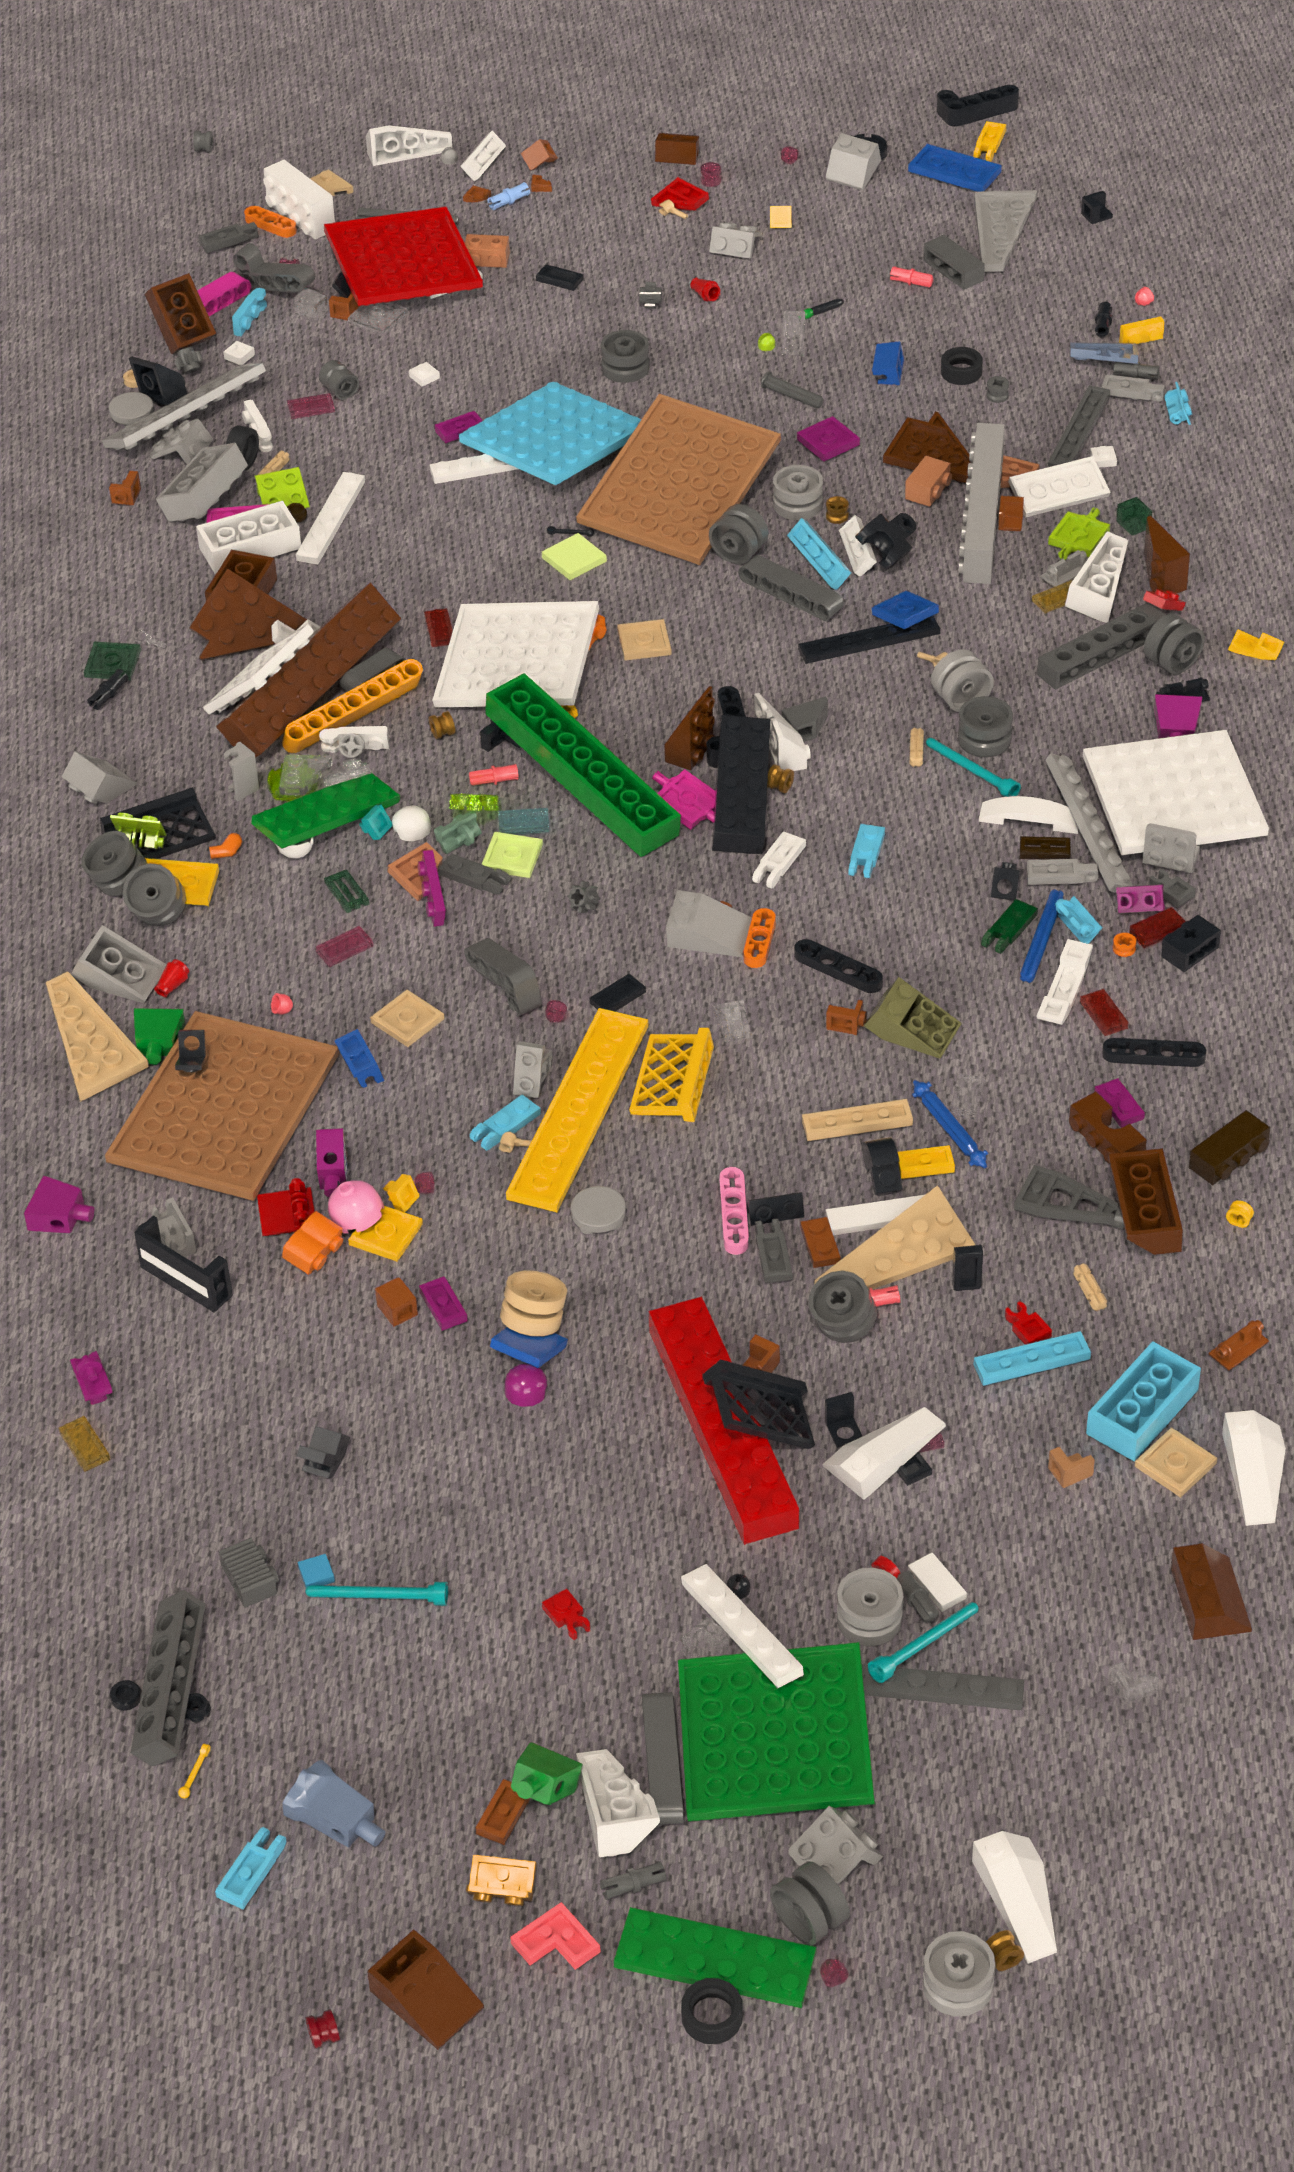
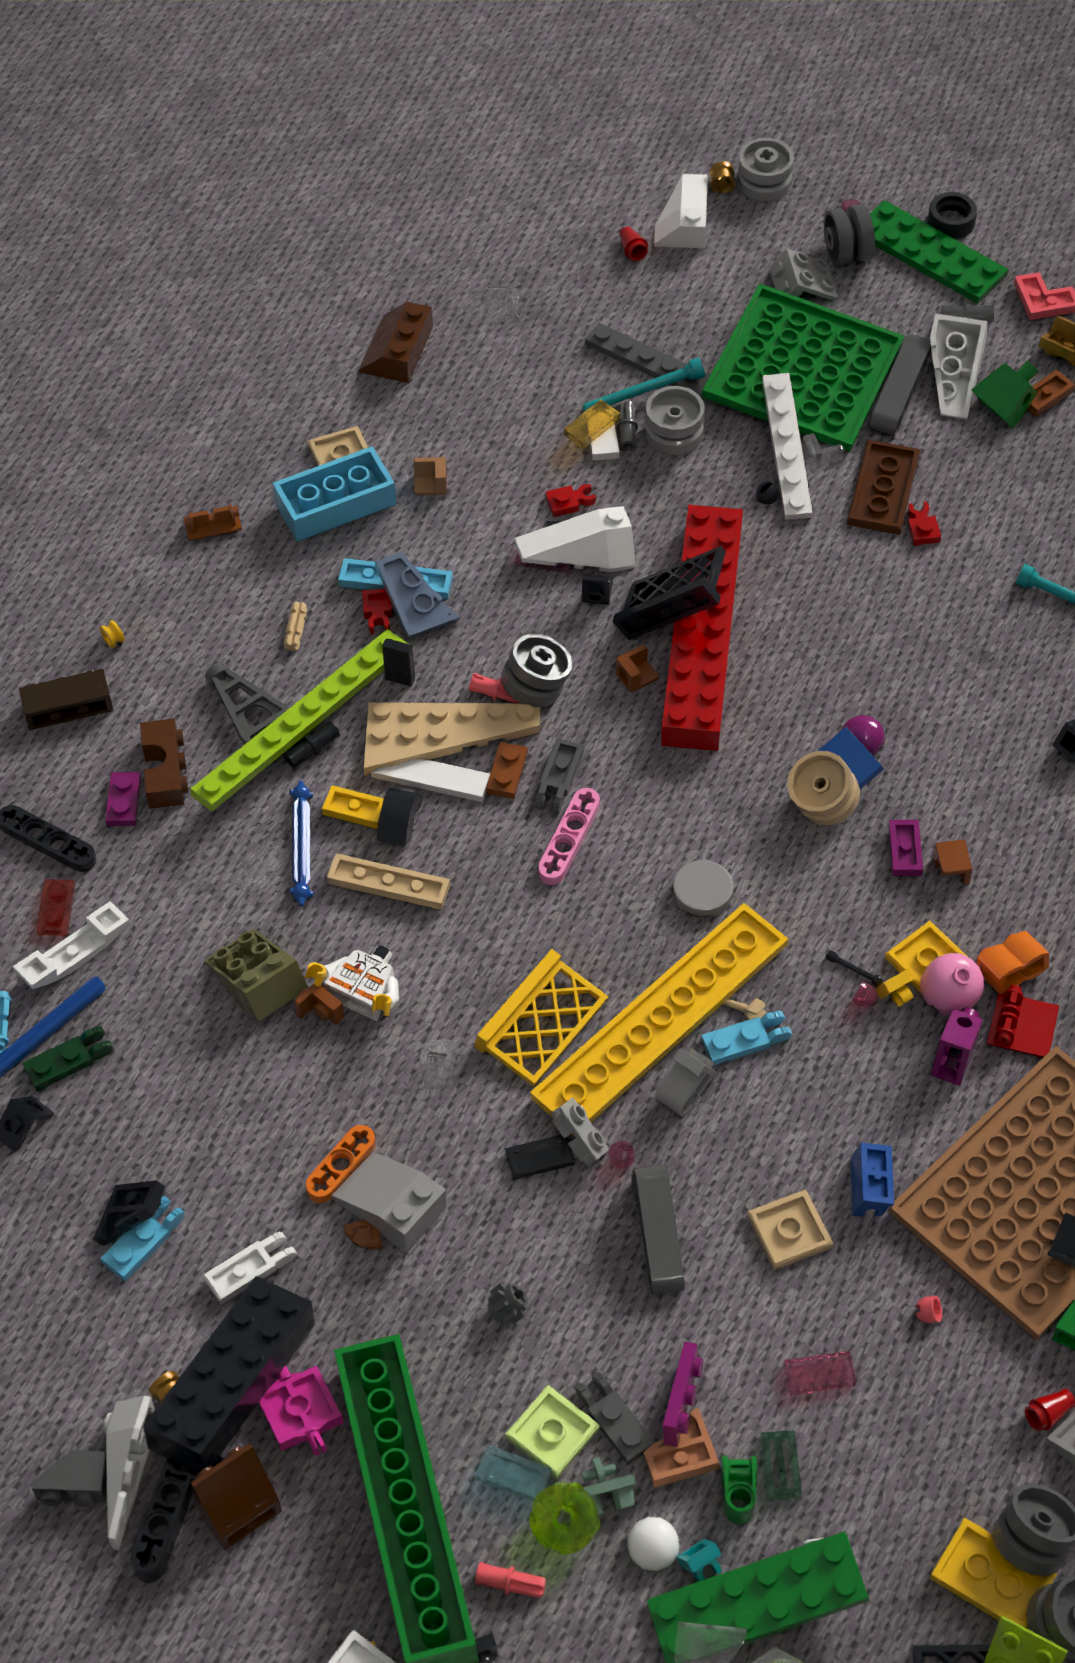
camera: 155 degrees left, 10 degrees up
(228, 847) = (904, 1612): orange arm -> none
(368, 862) = (739, 1483): none -> green piece
(464, 1204) = (832, 956): none -> black hinge
(593, 1004) = (589, 1142): none -> light grey hinge
(626, 1641) = (883, 487): none -> reddish brown tile
(776, 1207) = (516, 817): black hinge -> none
(824, 1041) = (360, 981): none -> torso
(869, 982) = (278, 1087): black beam -> none
(885, 852) = (128, 1208): none -> black wing
(885, 1564) = (640, 452): red tile -> none
(927, 1500) = (566, 501): none -> red plate
(951, 1575) = (591, 424): none -> clear yellow tile
(997, 1195) = (311, 744): none -> black pin
(999, 1335) = (414, 601): none -> sand blue wing
(1017, 1202) = (292, 725): none -> lime plate
(1049, 1819) = (633, 244): none -> red cone
(1147, 1200) = (186, 664): reddish brown slope -> none
(1256, 1462) = (280, 428): white wedge -> none

